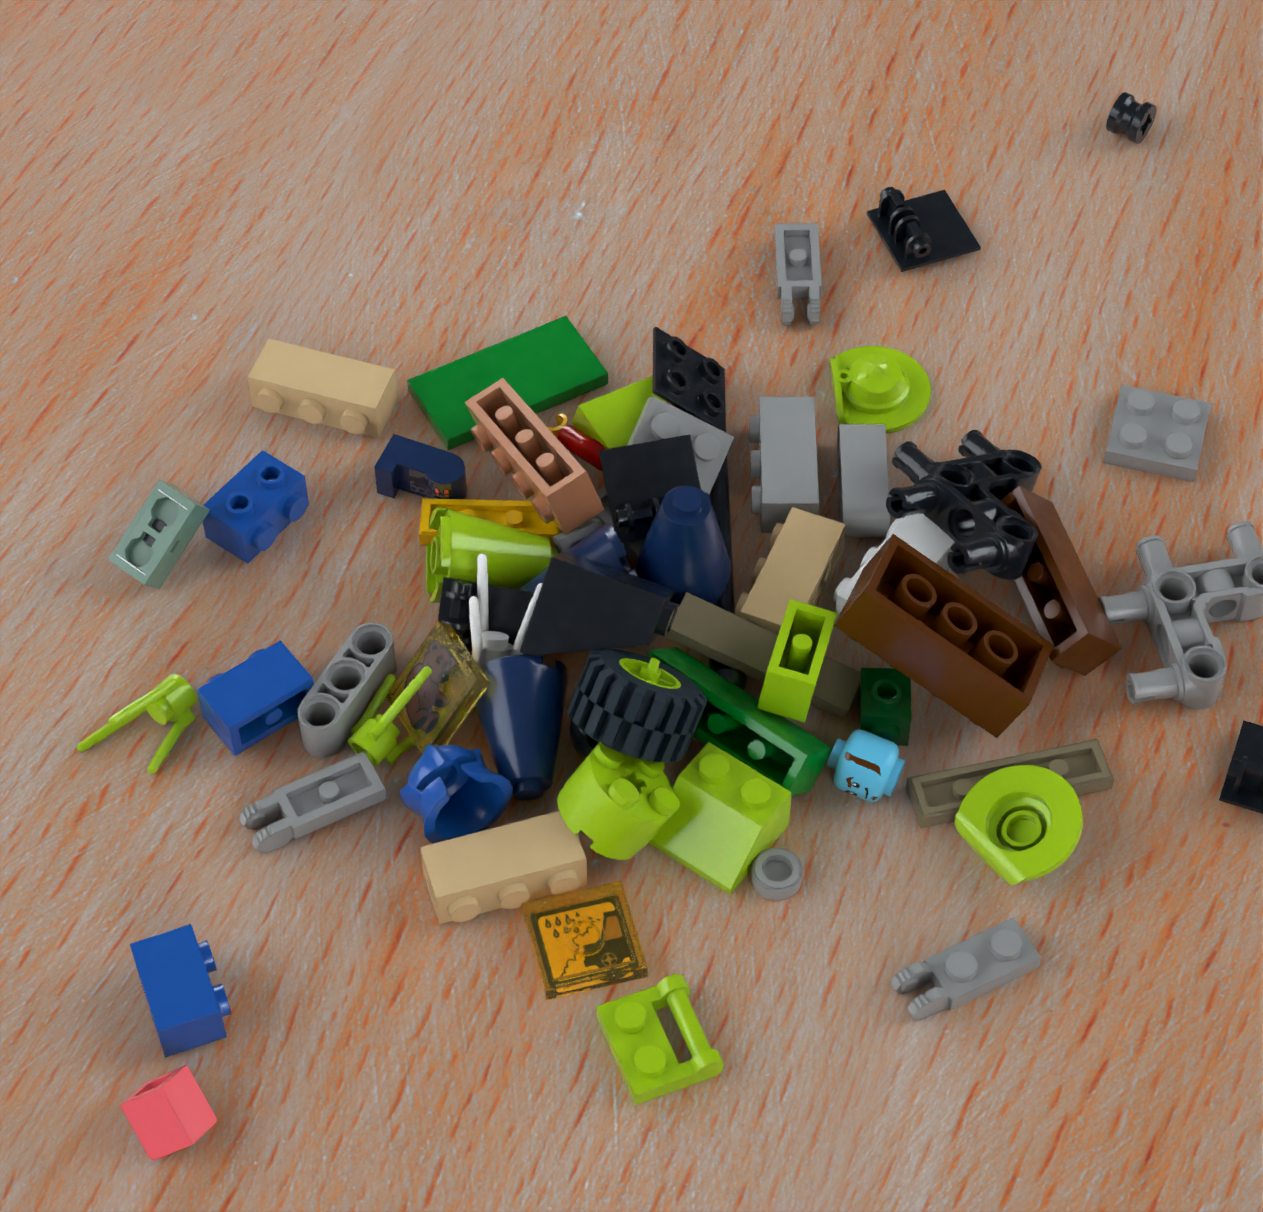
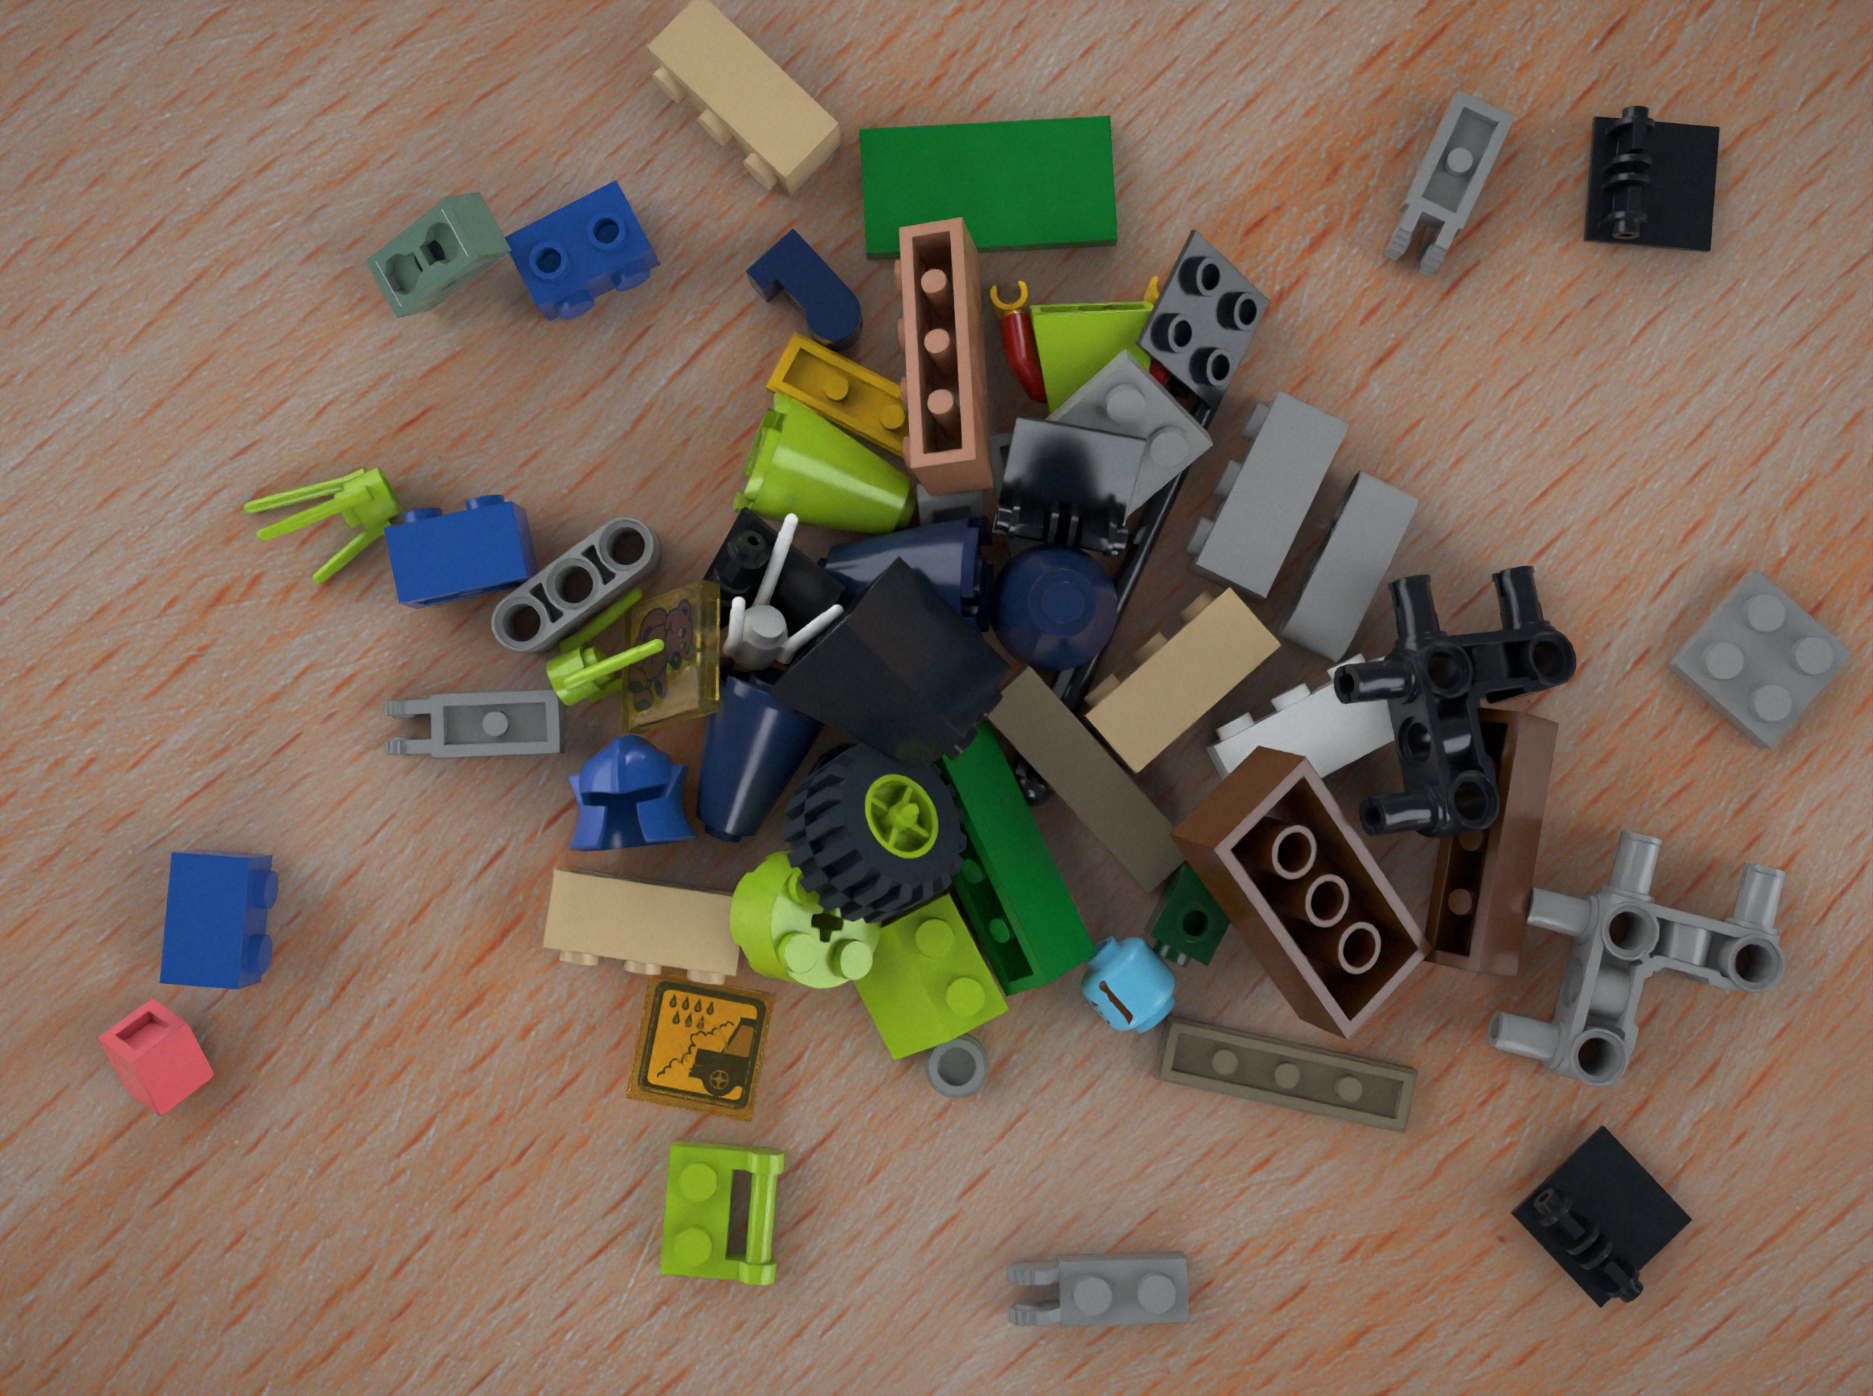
camera: 20 degrees right, 35 degrees up
(796, 660) = (1107, 843): lime brick -> none
(879, 387) = (1449, 418): lime hat -> none
(1021, 821) = (1262, 1157): lime hat -> none

